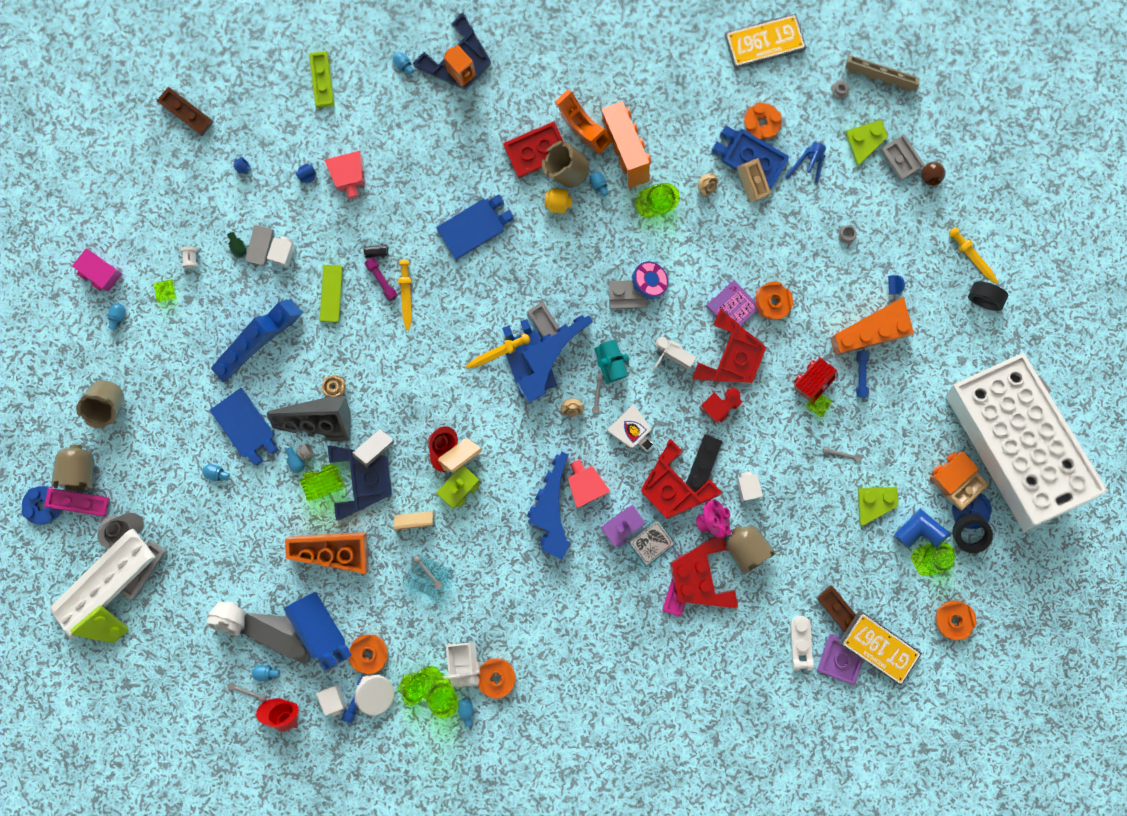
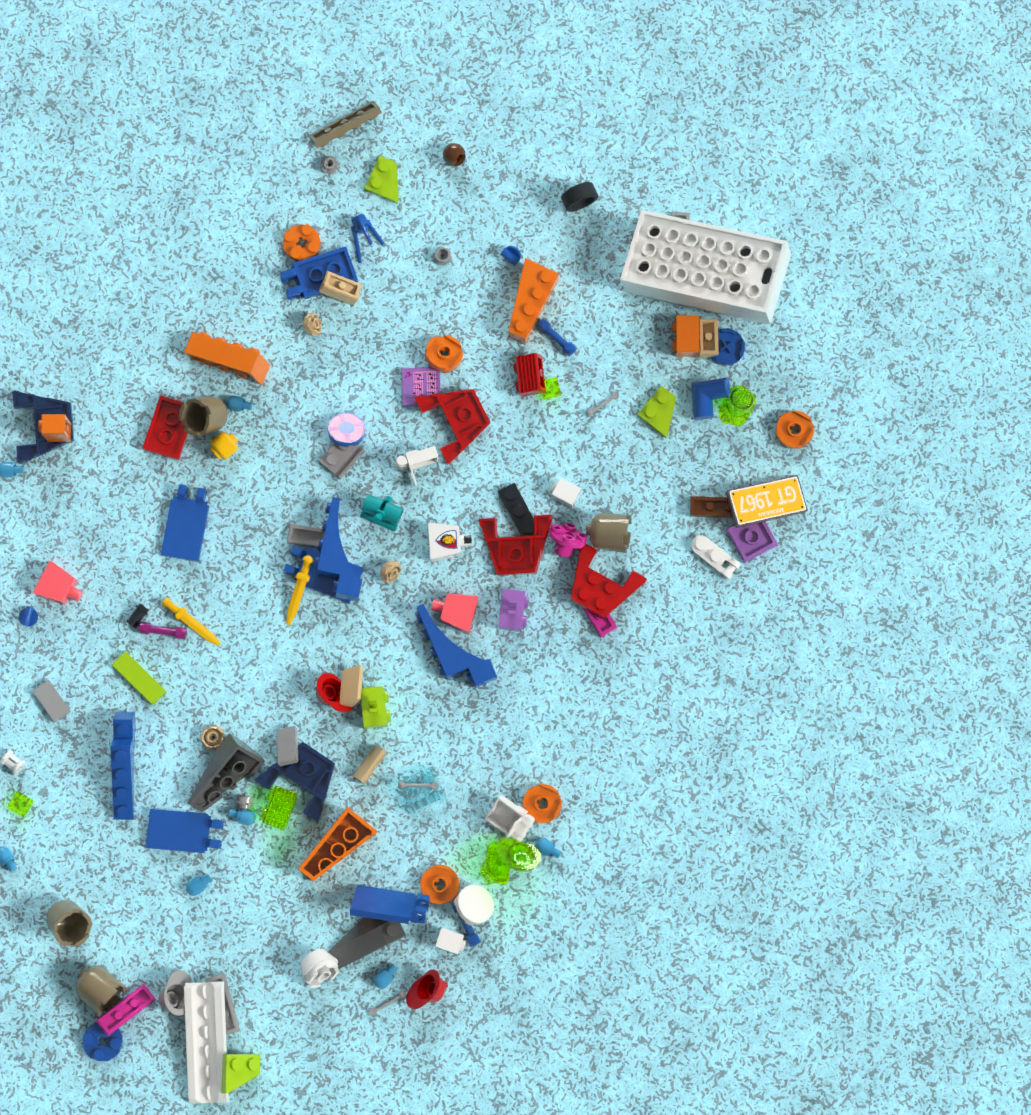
camera: 50 degrees left, 5 degrees down
(236, 245) = (36, 718): dark green cylinder -> none
(281, 251) = (72, 687): white brick -> none
(581, 124) = (184, 377): orange arch -> none
(599, 378) = (386, 532): light grey hinge -> none
(650, 541) = (541, 599): tile -> none
(657, 200) = (291, 371): clear neon green piece -> none
(717, 408) = (487, 465): red brick -> none
(765, 41) = (242, 187): tile -> none
(902, 157) = (421, 166): light grey plate -> none
(965, 246) = (530, 179): yellow sword -> none
(978, 546) = (727, 361): black tyre -> none

